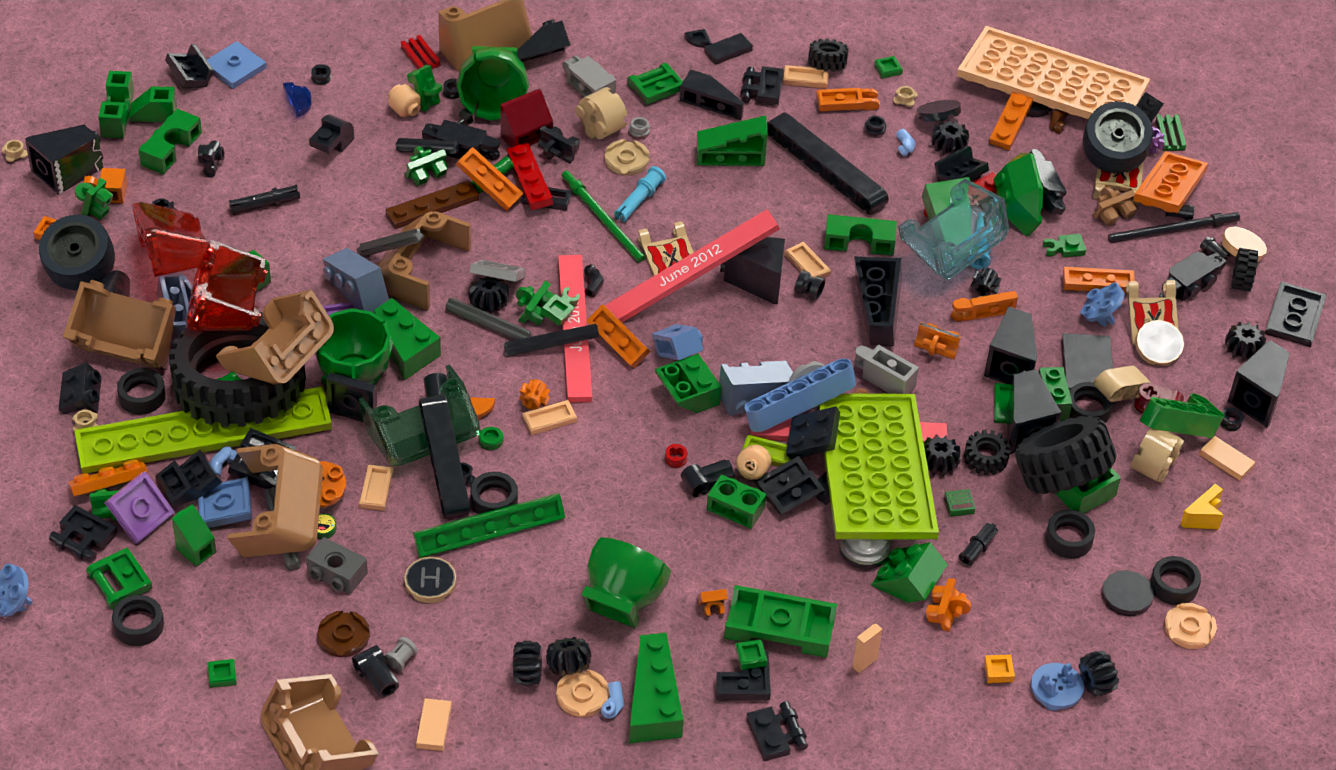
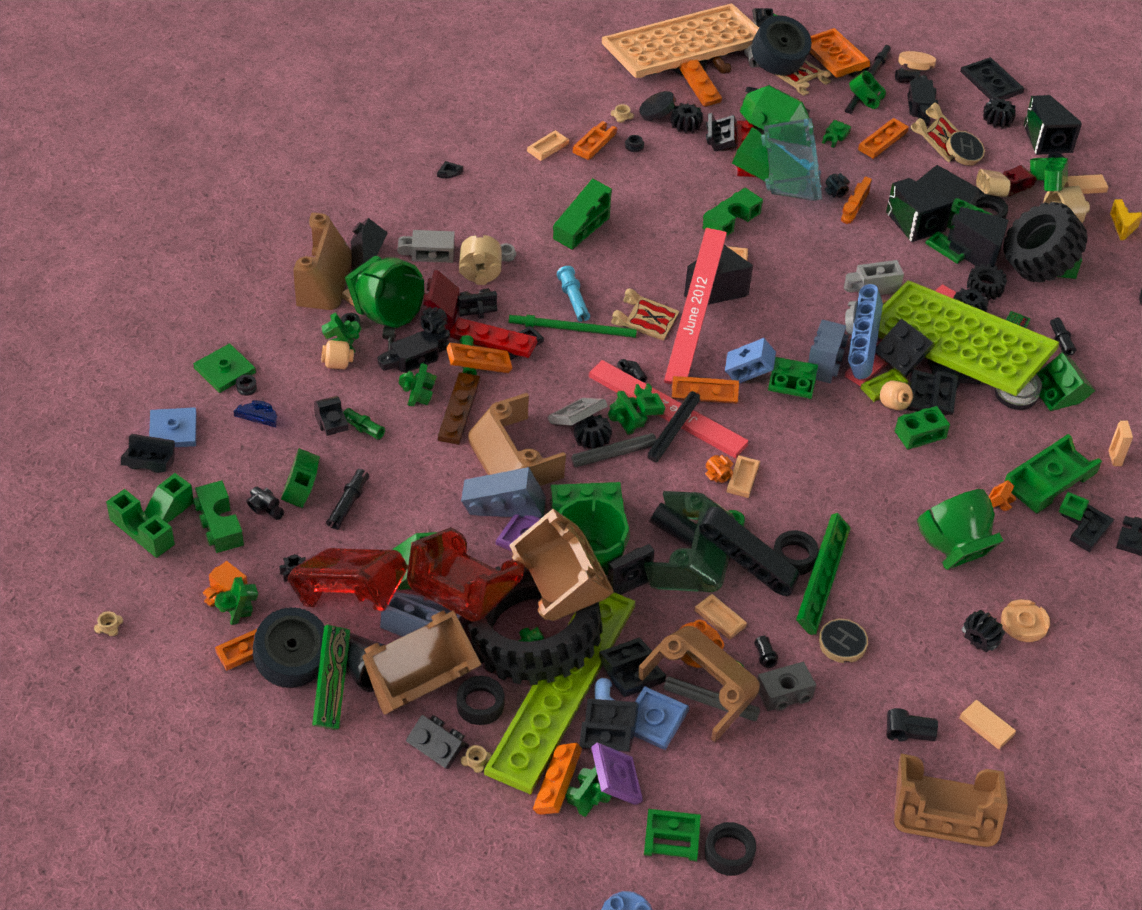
camera: 50 degrees left, 0 degrees up
(64, 156) = (166, 592): black slope -> none
(65, 292) = (331, 677): none -> green tile
(86, 526) = (598, 824): black plate -> none
(193, 536) = (681, 757): green slope -> none
(222, 673) = (828, 826): green tile -> none
(255, 158) = (301, 478): none -> green slope
(326, 50) = (224, 367): none -> green plate
(343, 641) = (857, 730): reddish brown tile -> none
(351, 160) = (364, 424): none -> green pin
(360, 538) = (767, 655): none -> black pin
(390, 242) = (495, 449): dark grey axle -> none
(400, 654) = (906, 700): light grey bush -> none
(409, 144) = (393, 375): black axle -> none
(429, 52) = (287, 315): red tile -> none
(493, 126) = (433, 320): none -> black gear
(568, 656) = (996, 601): black gear -> none
(615, 701) = (1050, 607): light blue arm -> none
(626, 163) = (526, 283): tan tile -> none
(656, 83) = (477, 218): green plate -> none
(656, 697) = (1062, 576): green wedge -> none
(676, 461) = (845, 438): red bush -> none
(701, 479) = (883, 430): black piece -> none
(708, 93) = (517, 198): black slope -> none
(728, 48) = (477, 163): black tile -> none
(769, 85) = (539, 166): black plate -> none
(810, 285) = (759, 265): black wheel -> none
(827, 162) = (652, 185): black beam -> none
(828, 55) = (546, 120): black tyre -> none
(879, 292) = (804, 240): black wedge -> none
(888, 67) = (583, 103): green tile -> none
(908, 143) = (665, 139): light blue arm -> none
(937, 340) = (867, 240): orange hips -> none
(951, 604) = (1108, 381): orange hips -> none
(1067, 548) = (1088, 300): black tyre -> none
(1102, 304) = (910, 147): medium blue plate -> none
(1112, 201) = (827, 89): medium nougat hips -> none
(1148, 234) = (867, 88): none -> green piece
(1244, 269) = (950, 67): black tyre -> none

